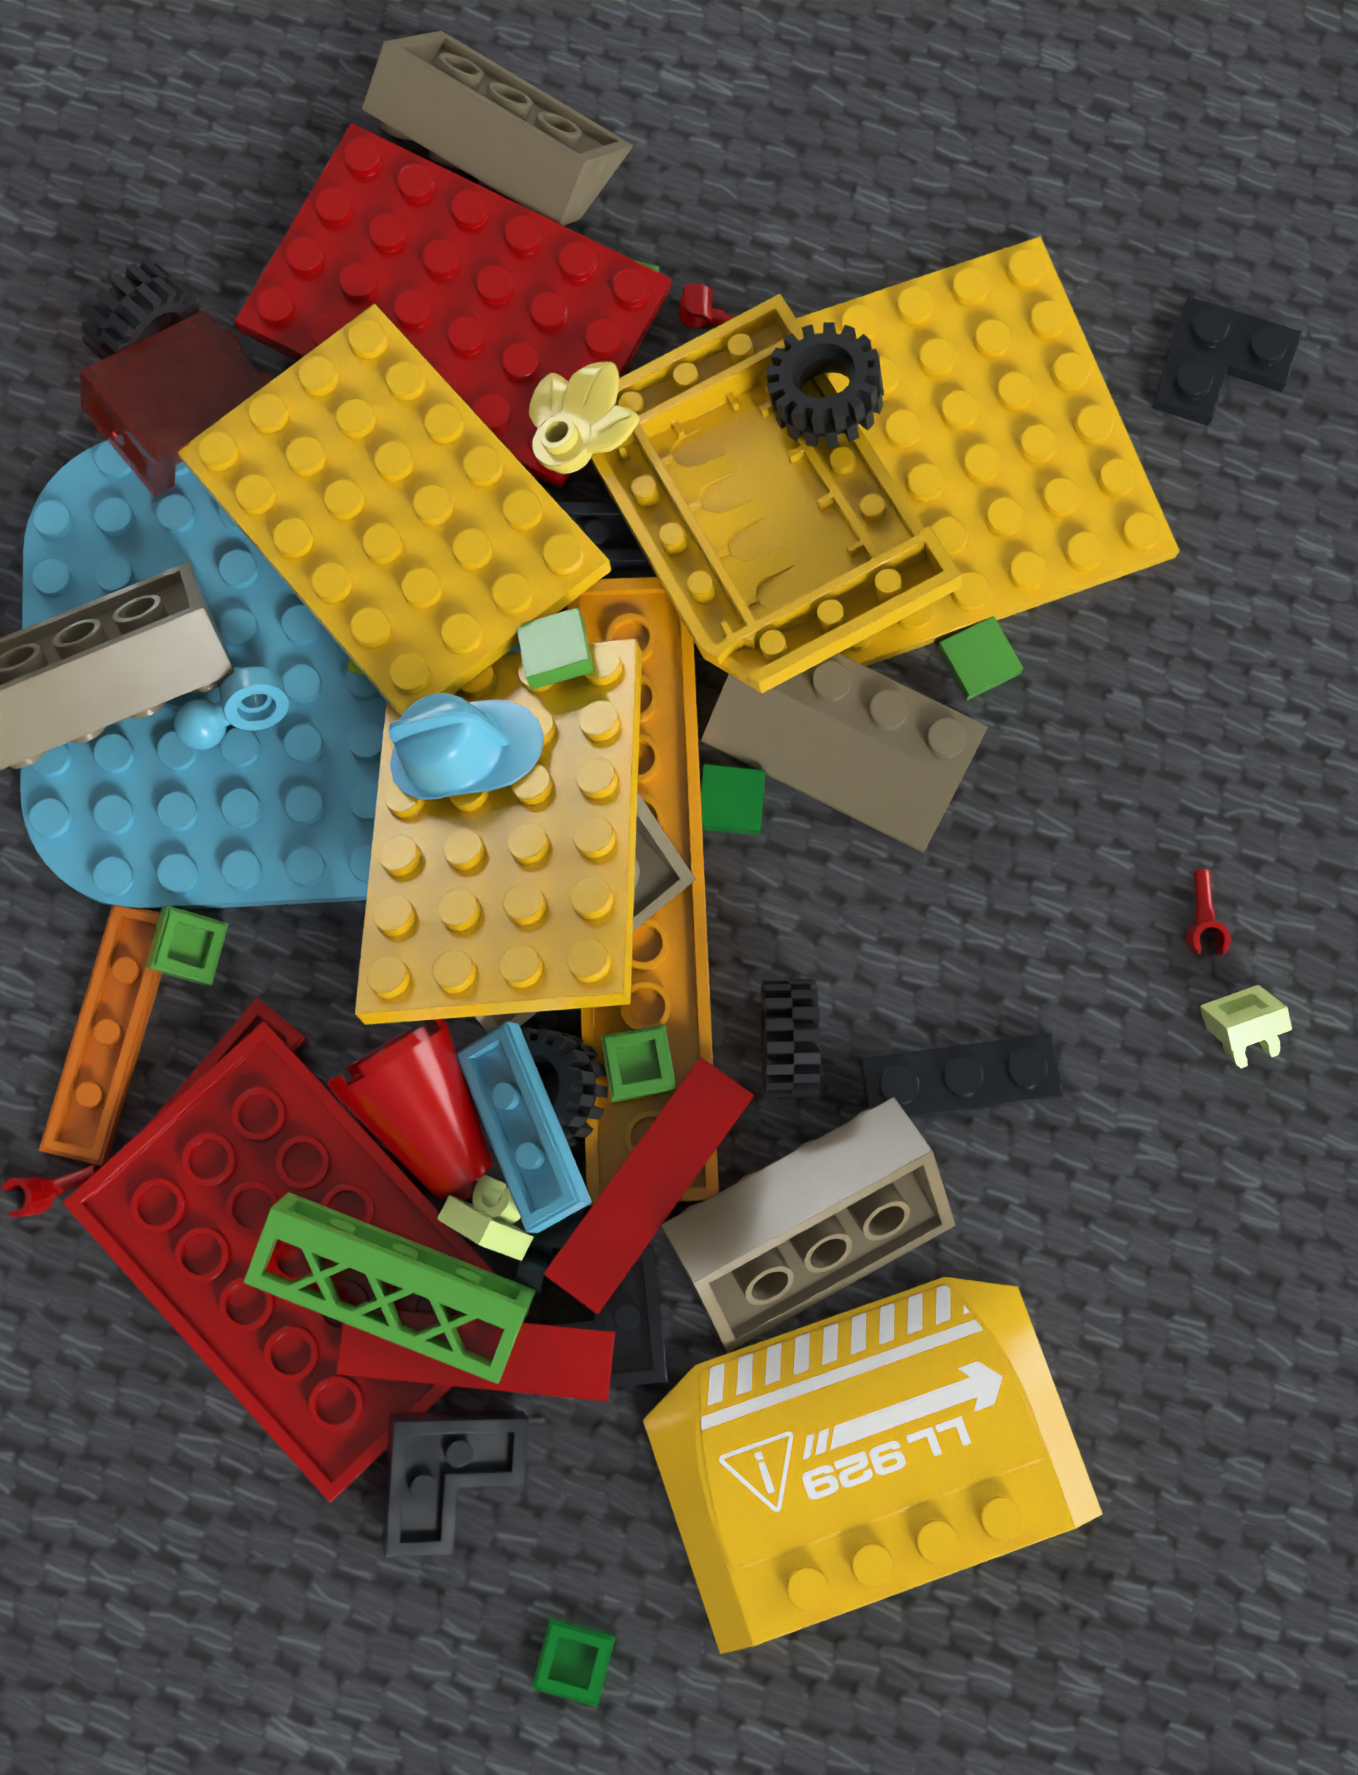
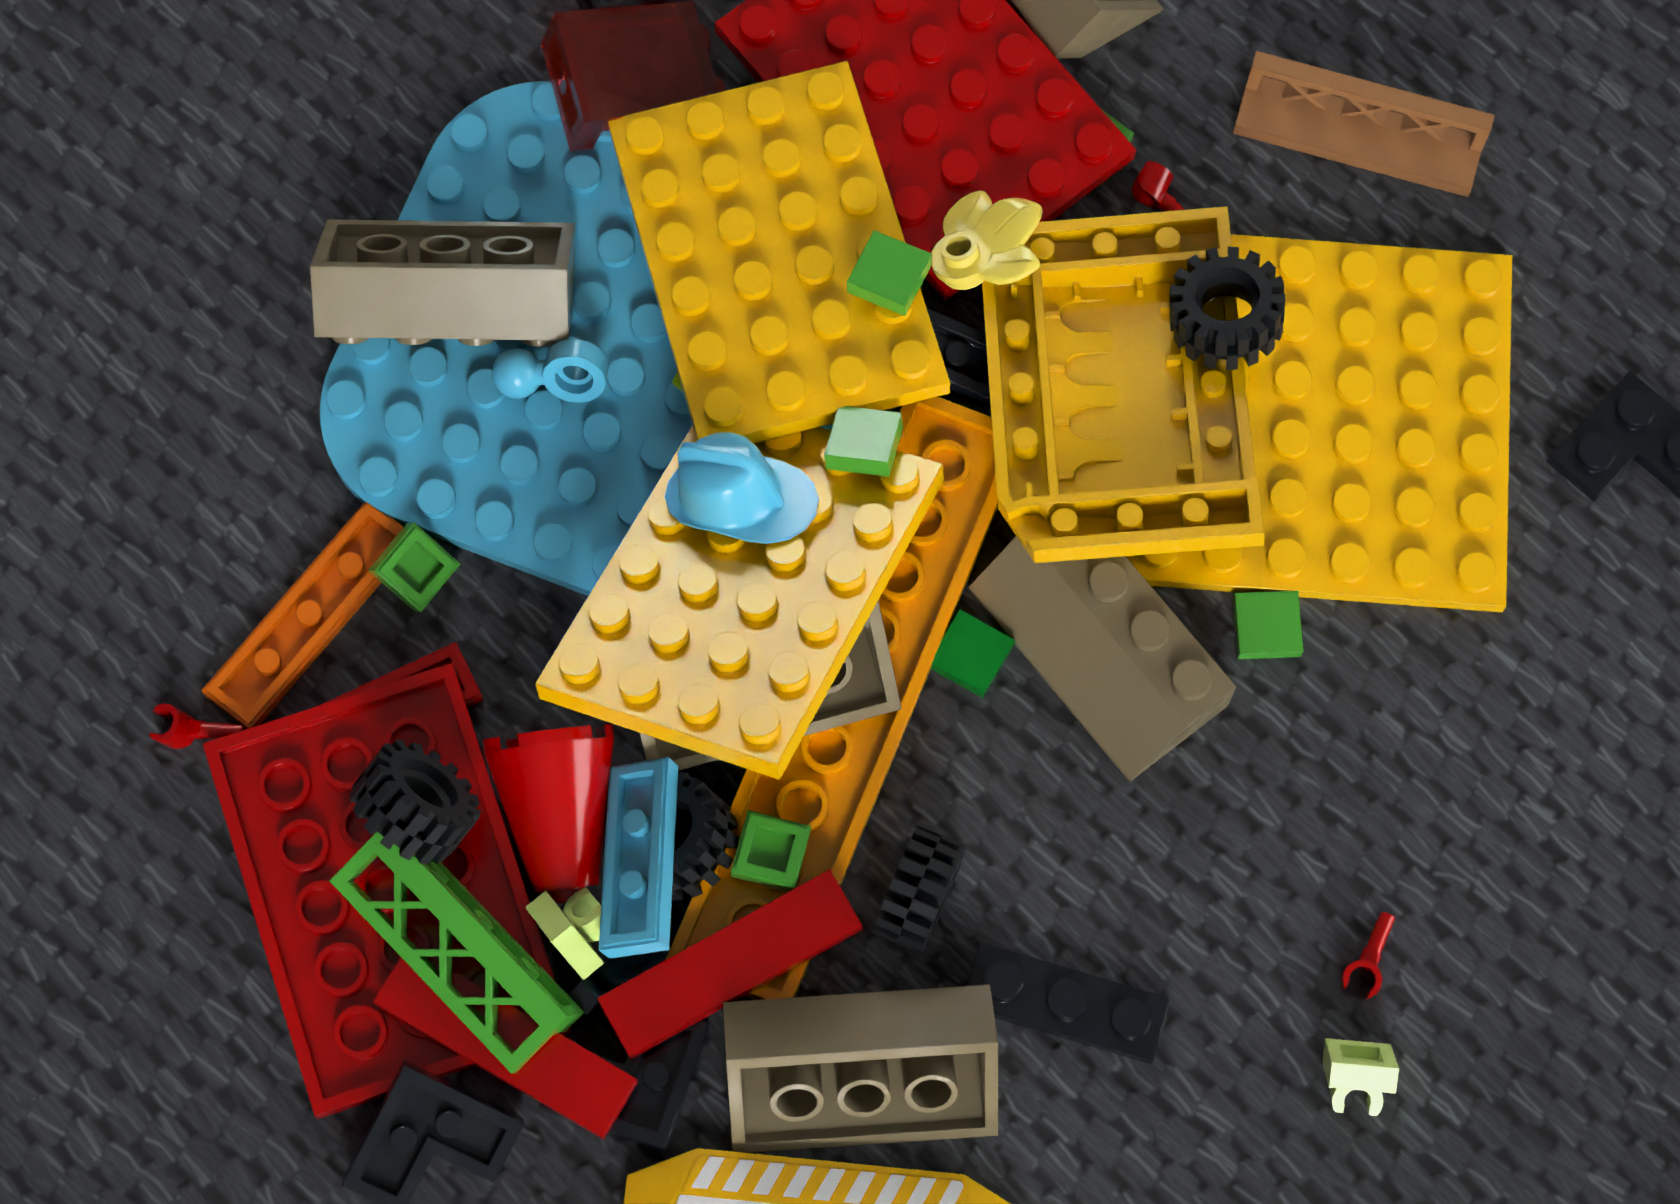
camera: 25 degrees right, 5 degrees down
(290, 1173) = (415, 802): none -> black tyre
(507, 481) = (889, 273): none -> bright green tile
(849, 183) = (1361, 125): none -> medium nougat fence

